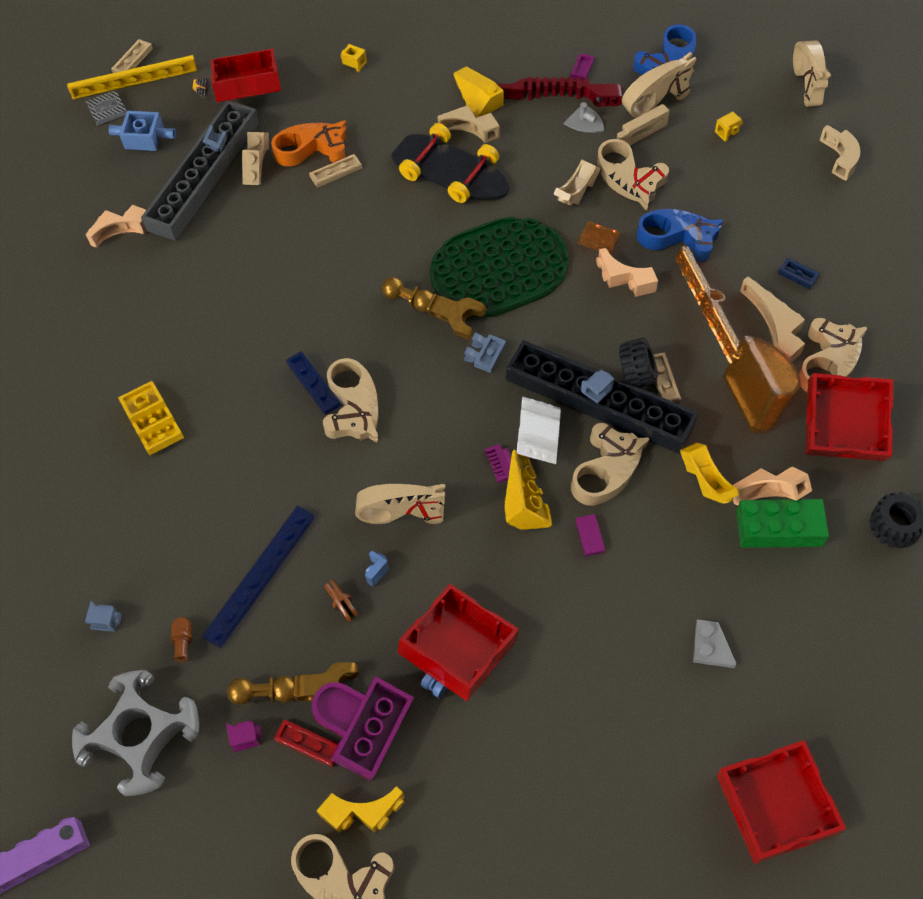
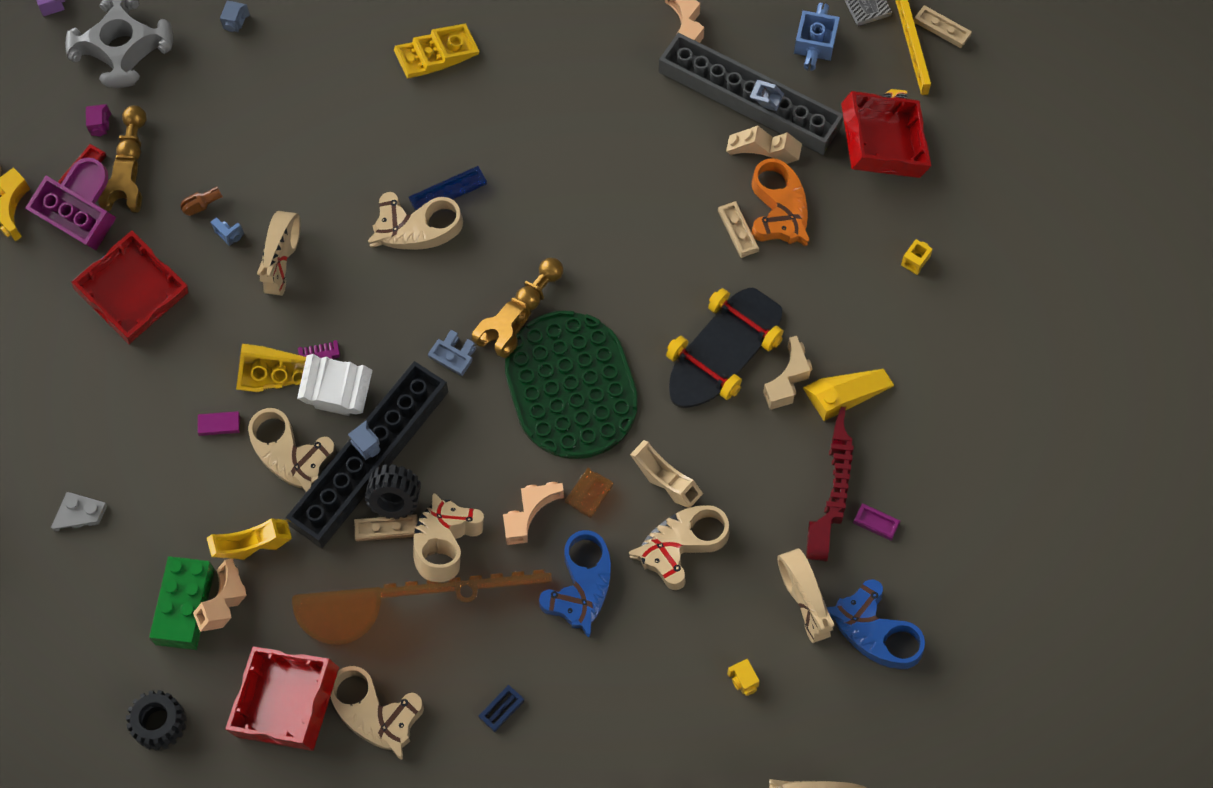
camera: 95 degrees right, 5 degrees up
(181, 636) = (200, 75): dark orange arm -> none
(258, 577) = (248, 139): clear blue plate -> none
(585, 120) = (785, 512): light grey shield -> none
(644, 125) = (754, 570): tan hinge -> none
(670, 328) = (437, 533): none -> tan animal
(781, 319) = (434, 666): tan arch -> none

